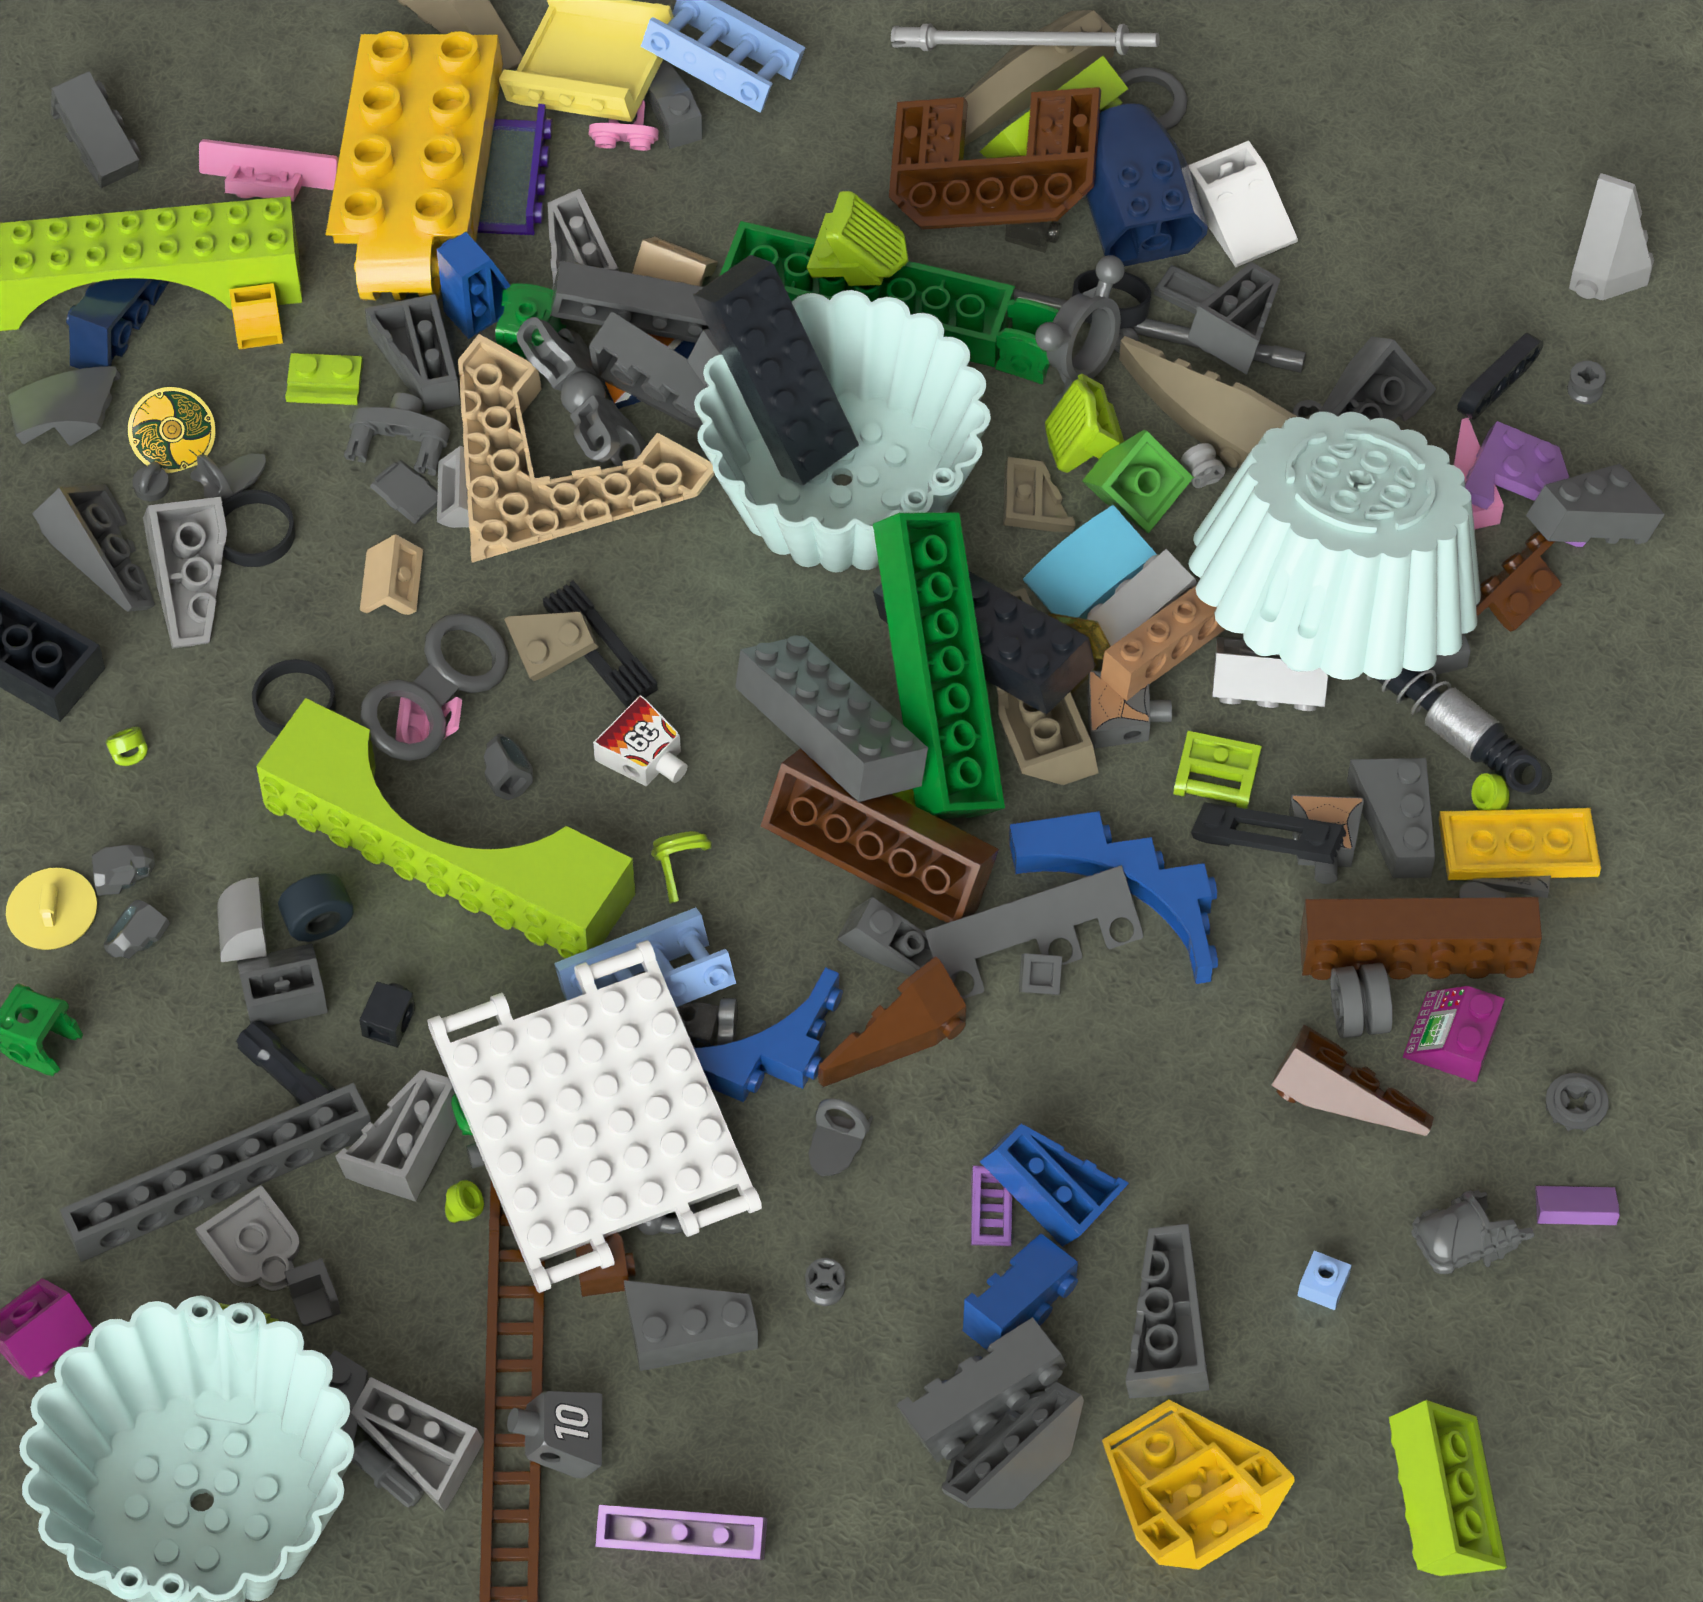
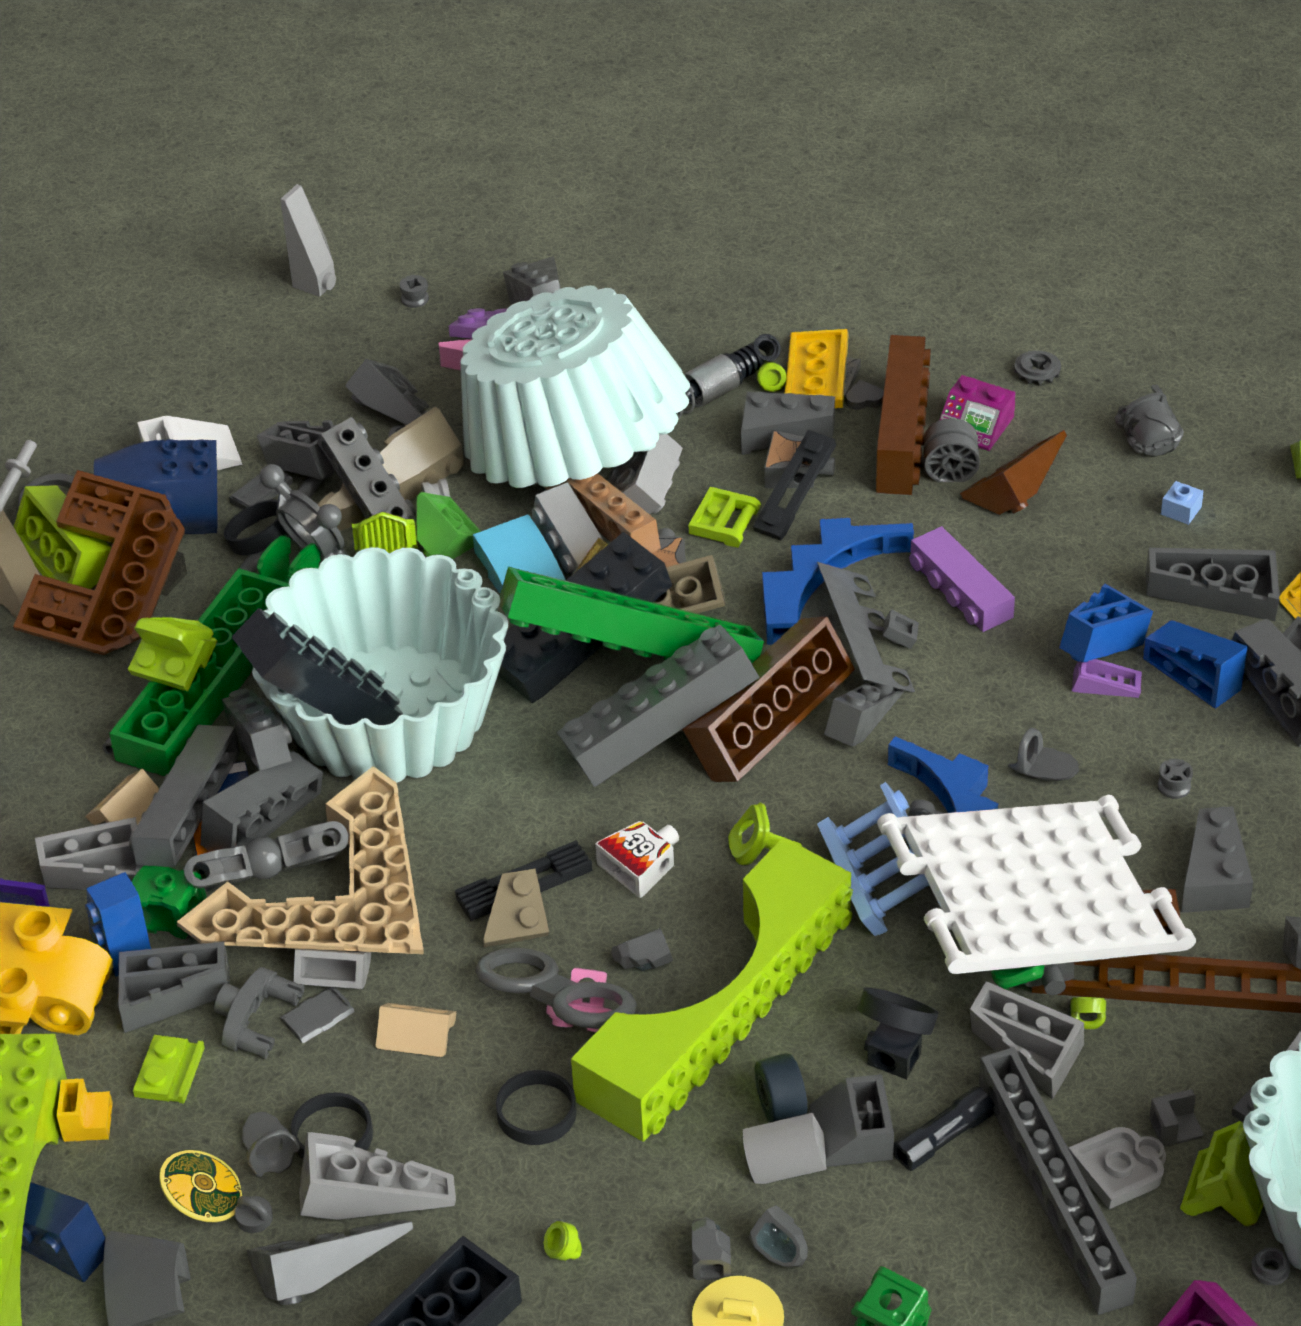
camera: 80 degrees left, 15 degrees down
(393, 1003) = (897, 1011): none -> black tyre
(915, 1021) = (939, 704): reddish brown wedge -> none
(1136, 1032) = (962, 579): none -> medium lavender brick
(1174, 375) = (363, 471): none -> brick
(1499, 376) = (403, 325): black beam -> none
(1577, 1205) = (1121, 376): medium lavender slope -> none

